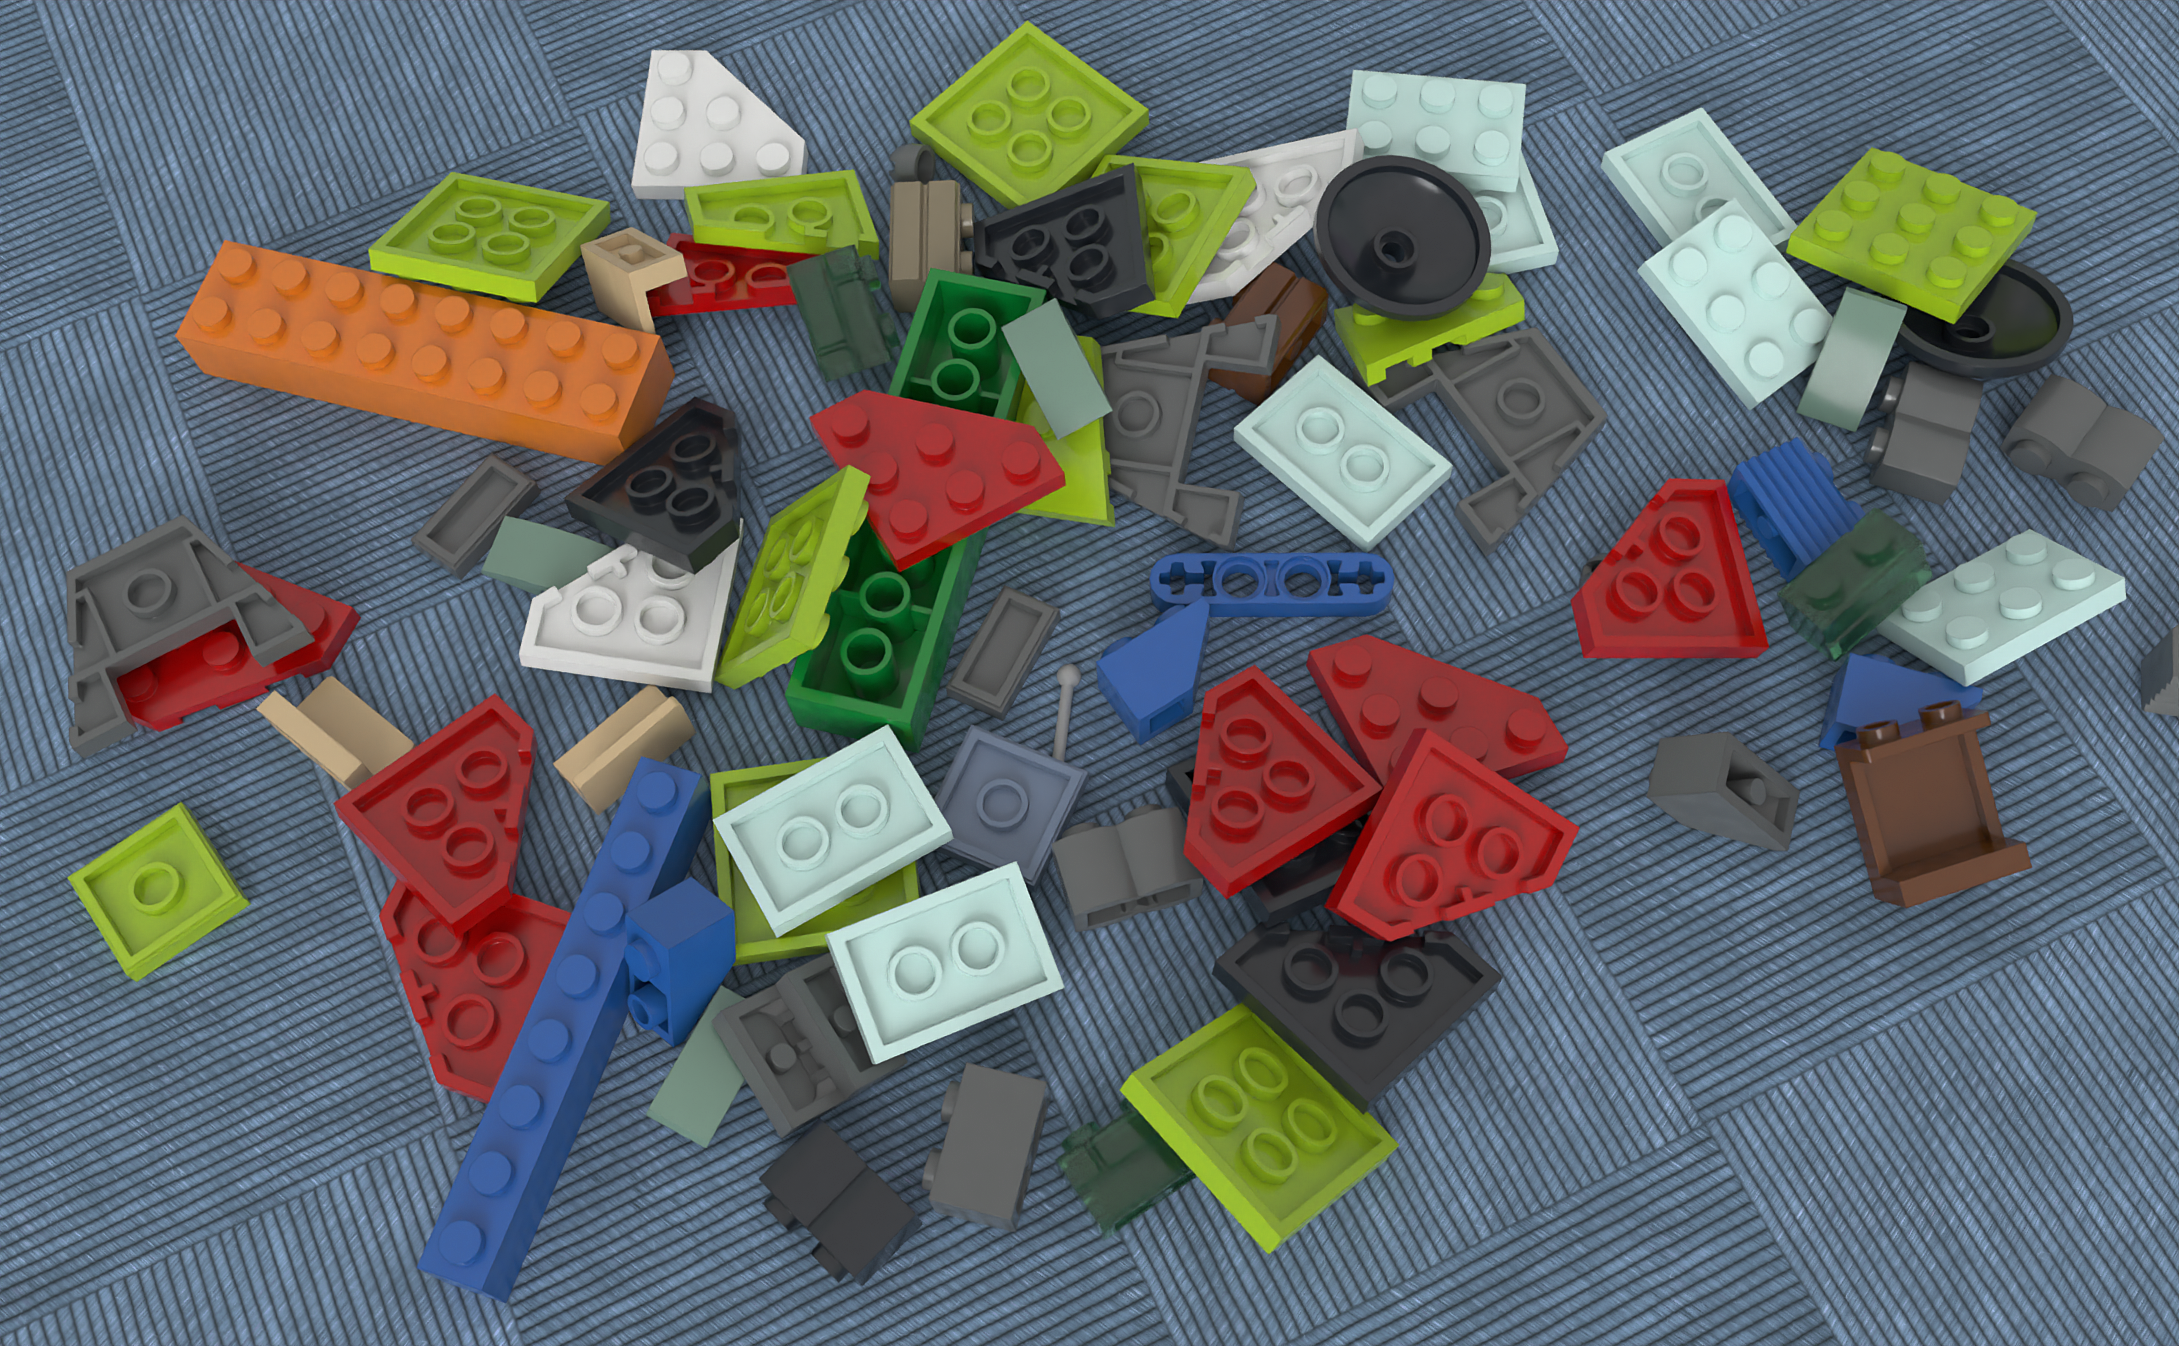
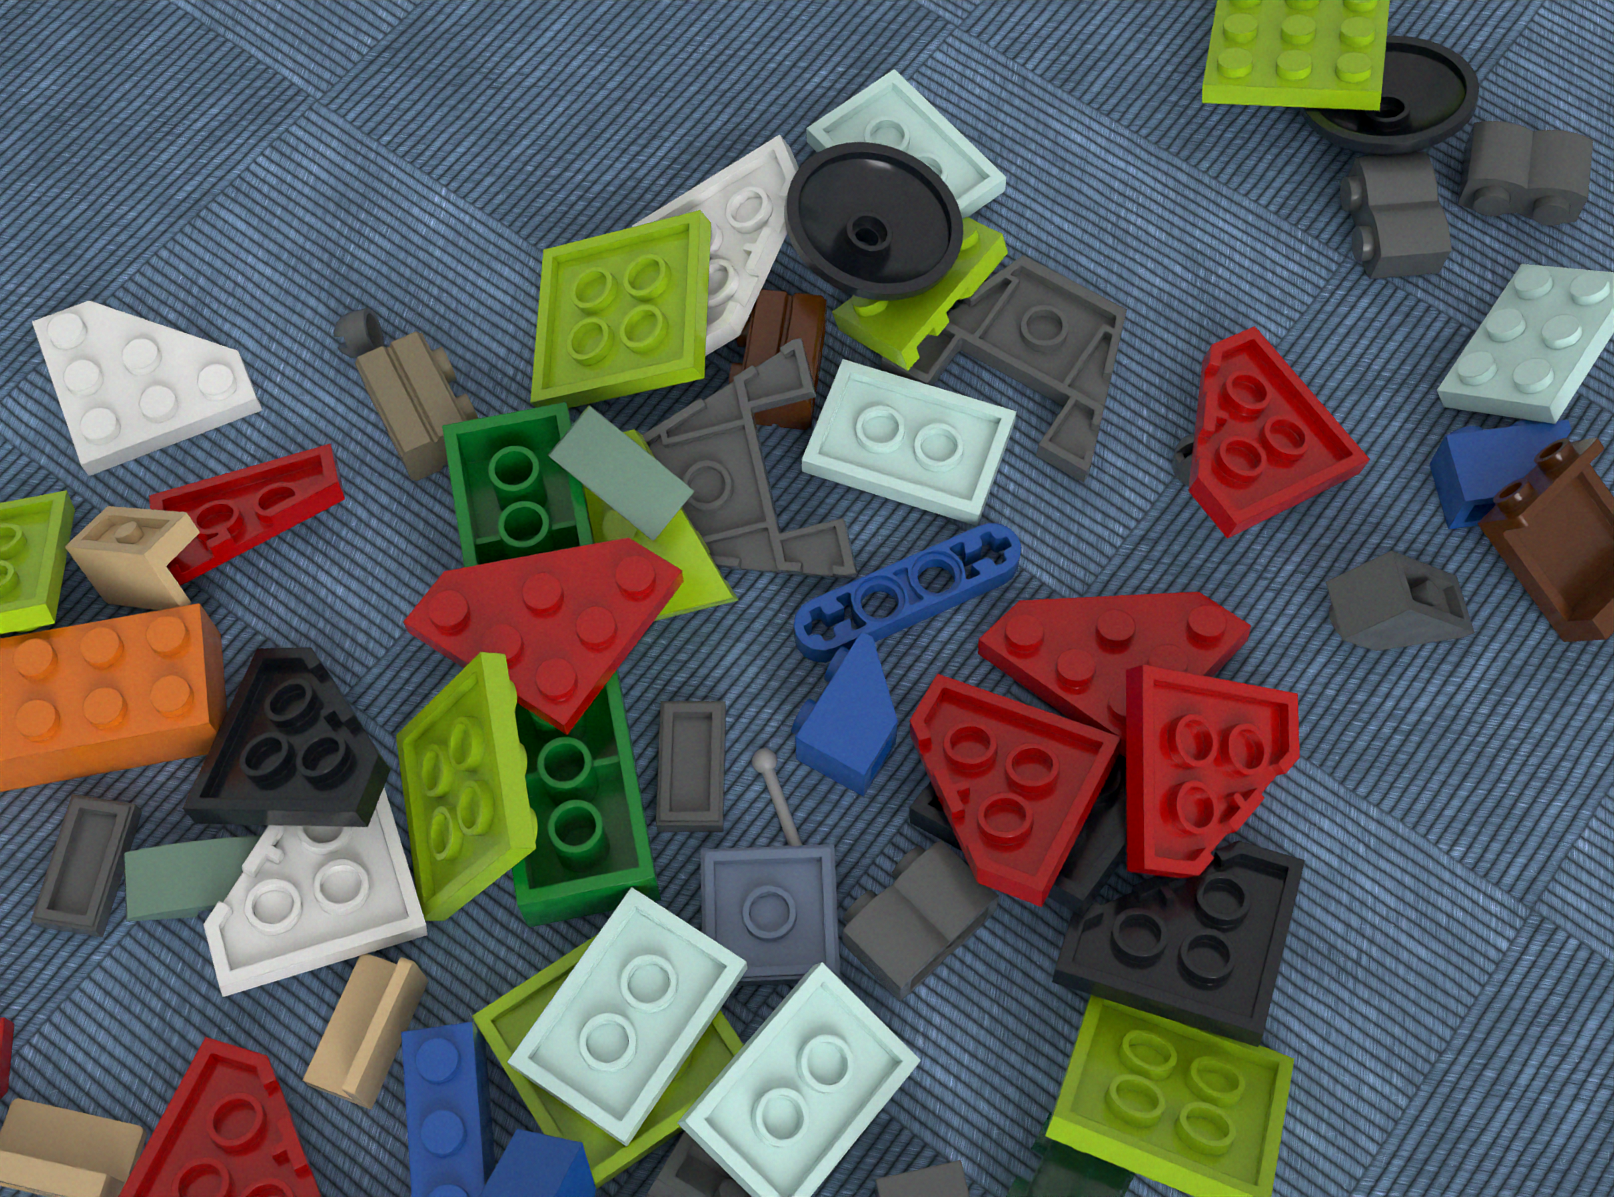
camera: 30 degrees left, 0 degrees up
(784, 214) = (260, 430): lime wing -> none
(841, 312) = (372, 505): clear green brick -> none
(1028, 119) = (452, 248): lime plate -> none
(1076, 244) = (568, 344): black plate -> none
(1449, 122) = (844, 99): light aqua plate -> none
(1686, 174) = (1101, 84): light aqua plate -> none
(1739, 302) = (1188, 163): light aqua plate -> none
(1791, 505) = (1330, 329): blue brick -> none
(1851, 359) = (1309, 175): sand green slope -> none
(1855, 584) = (1417, 373): clear green brick -> none

